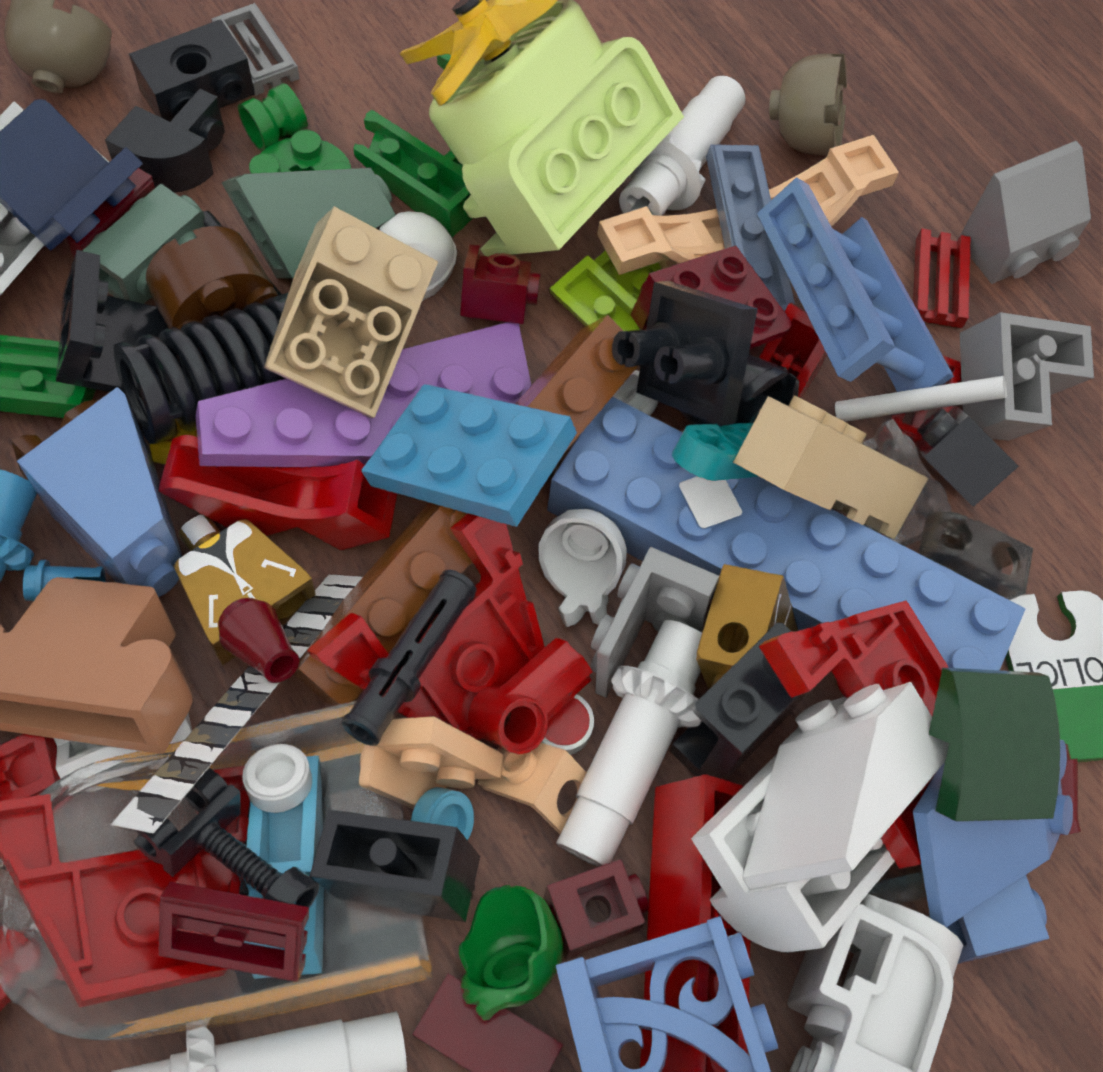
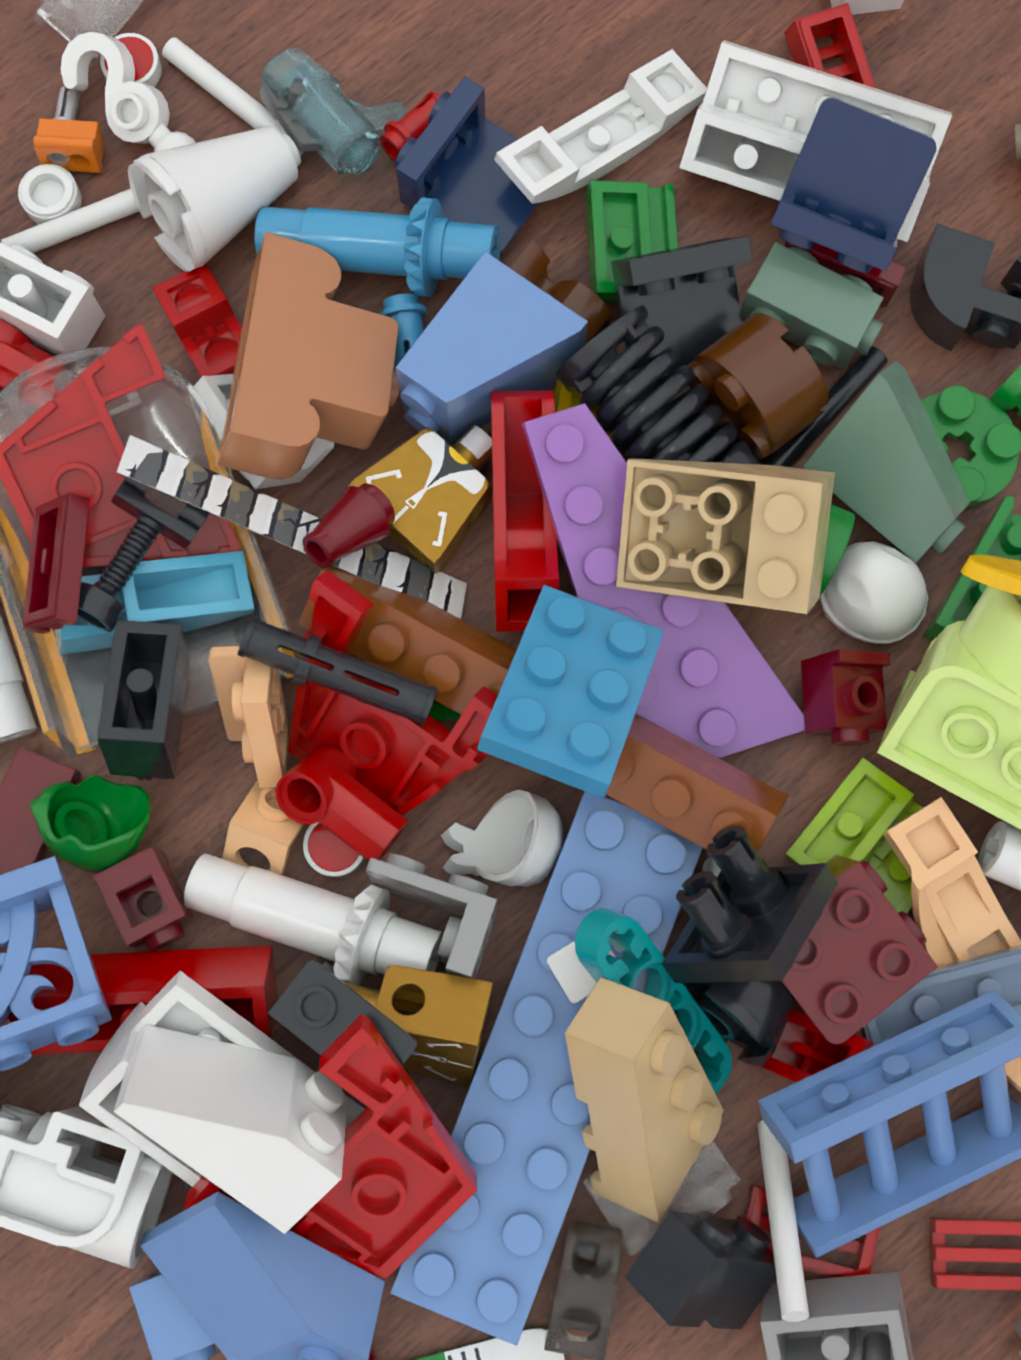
camera: 90 degrees right, 15 degrees up
(277, 778) = (220, 574): white tile -> none
(445, 808) = (213, 740): medium azure tile -> none
(1000, 745) = (295, 1281): dark green slope -> none

